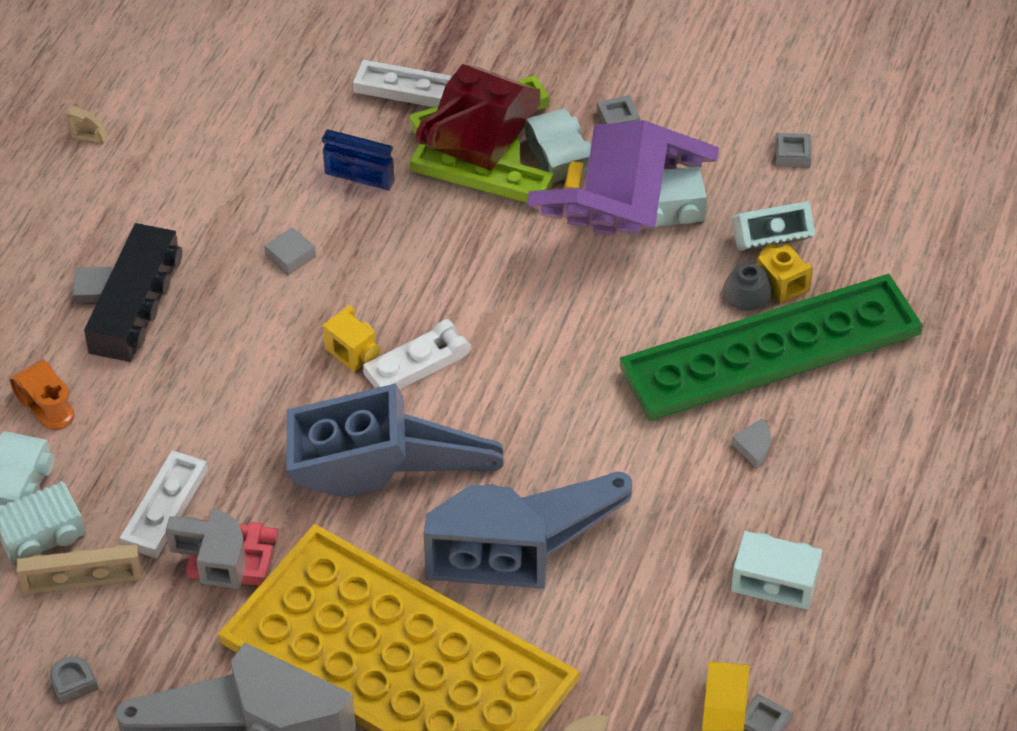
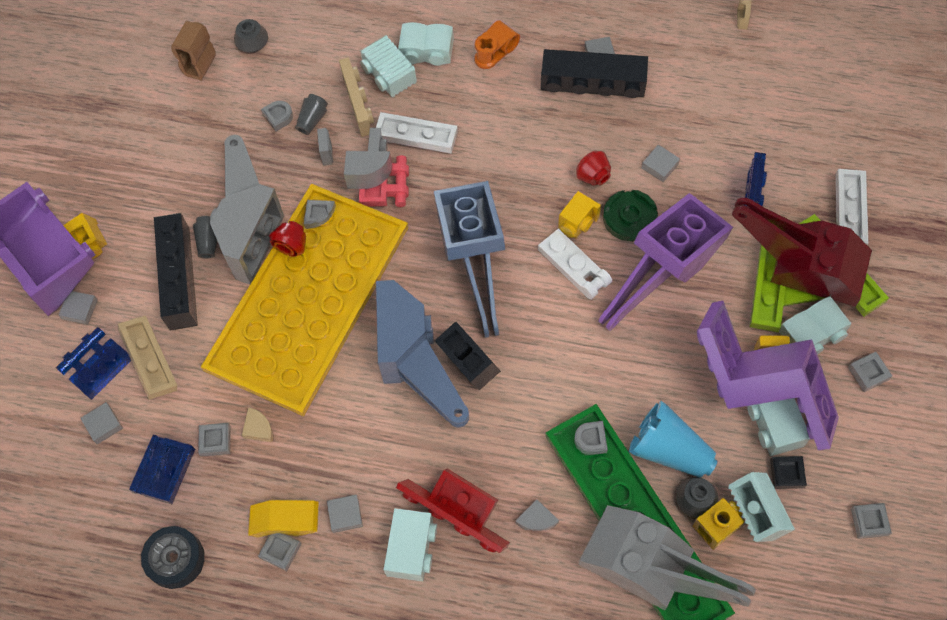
camera: 85 degrees right, 15 degrees up
(89, 629) = (311, 113): none -> dark grey cone
(156, 614) = (325, 146): none -> light grey tile
(273, 624) = (318, 213): none -> light grey tile
(285, 311) = (594, 168): none -> red cone
(316, 651) = (289, 239): none -> red cone
(363, 287) = (628, 214): none -> dark green tile
(435, 236) = (677, 240): none -> medium lavender slope
(538, 468) = (467, 356): none -> black brick
(667, 365) = (591, 438): none -> light grey tile
(679, 295) = (672, 443): none -> medium azure cone
(723, 642) = (344, 513): none -> light grey tile
(726, 204) = (788, 472): none -> black tile
(728, 509) = (460, 504): none -> red bracket
(823, 332) = (652, 560): none -> light grey slope

